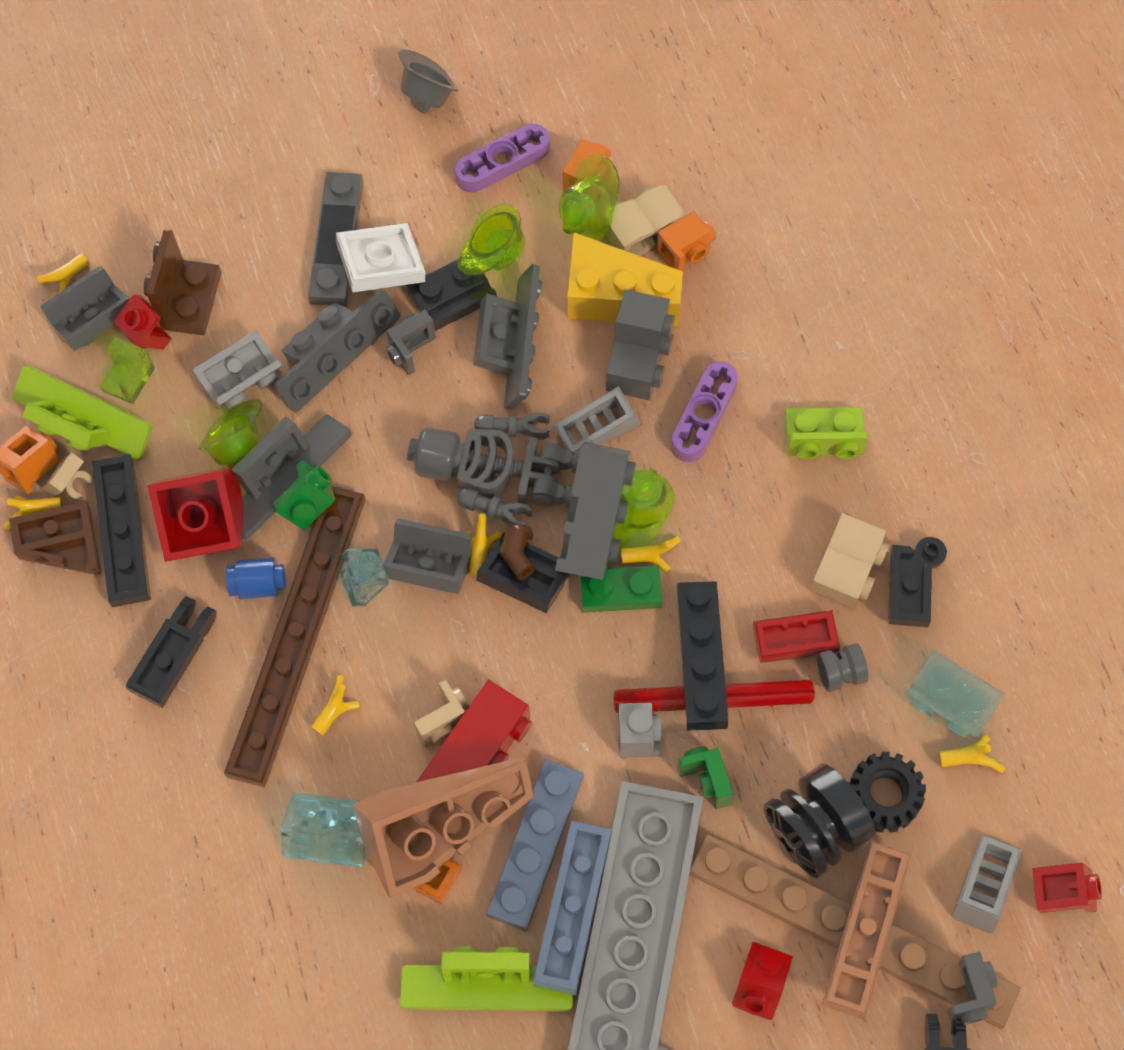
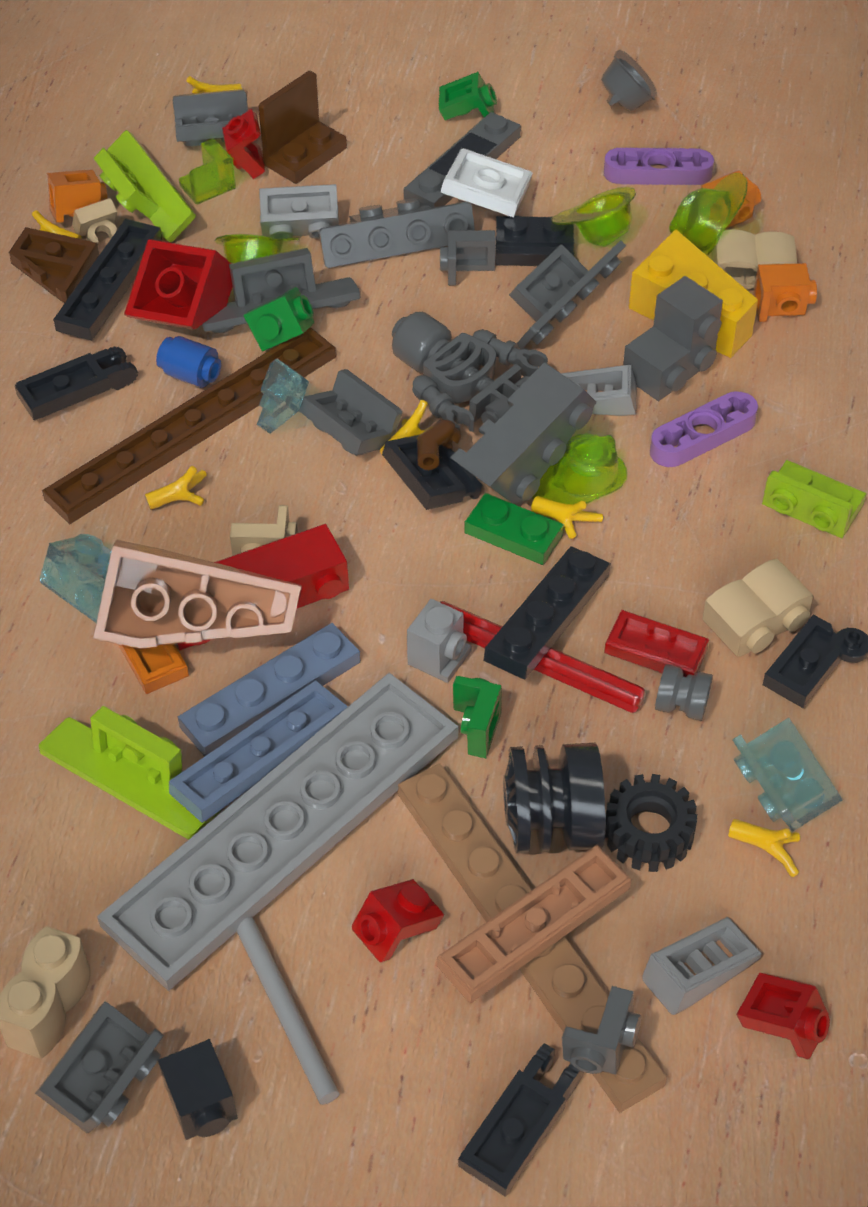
camera: 30 degrees right, 15 degrees down
(295, 167) = (465, 95): none -> green bracket

